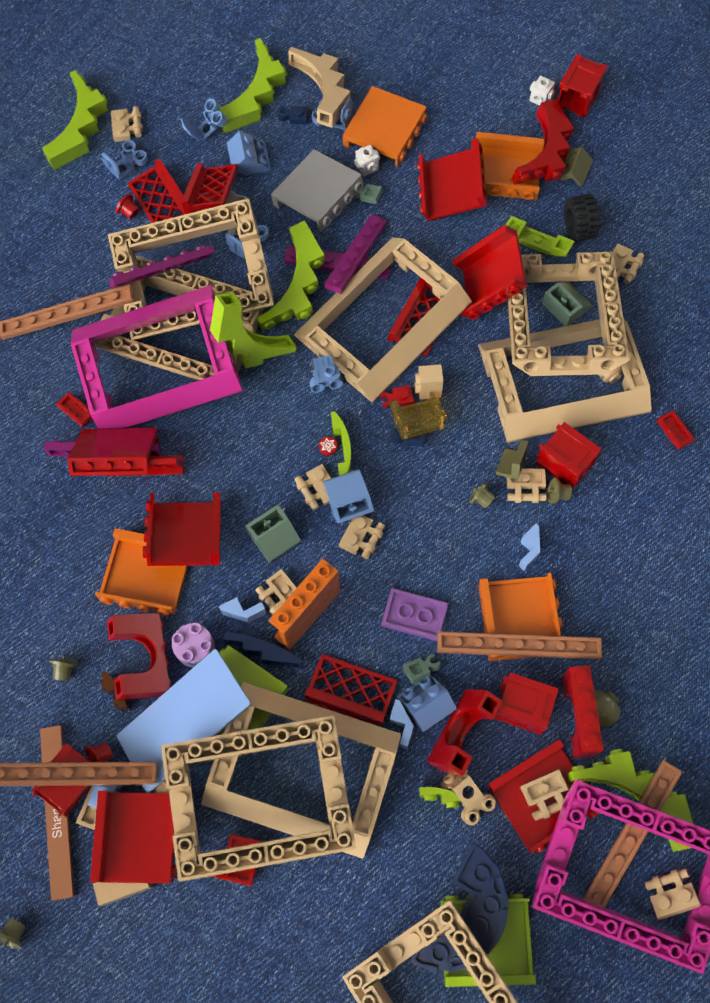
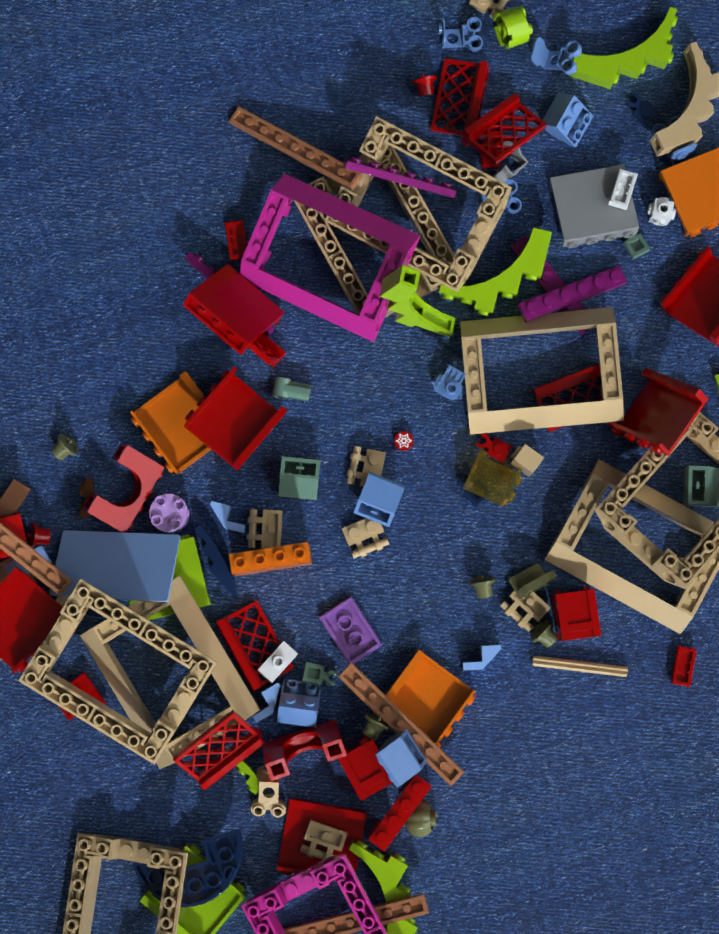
camera: 35 degrees right, 15 degrees up
(157, 127) = (512, 27): none -> lime brick
(206, 480) = (286, 388): none -> sand green piece
(328, 160) = (623, 189): none -> white plate
(340, 430) = (423, 433): lime slope -> none
(380, 685) = (277, 661): none -> white plate
(410, 794) = (228, 757): none -> red fence
(502, 663) = (374, 726): none -> olive piece
(545, 666) = (401, 757): none -> medium blue slope
(604, 493) = (580, 666): none -> tan axle

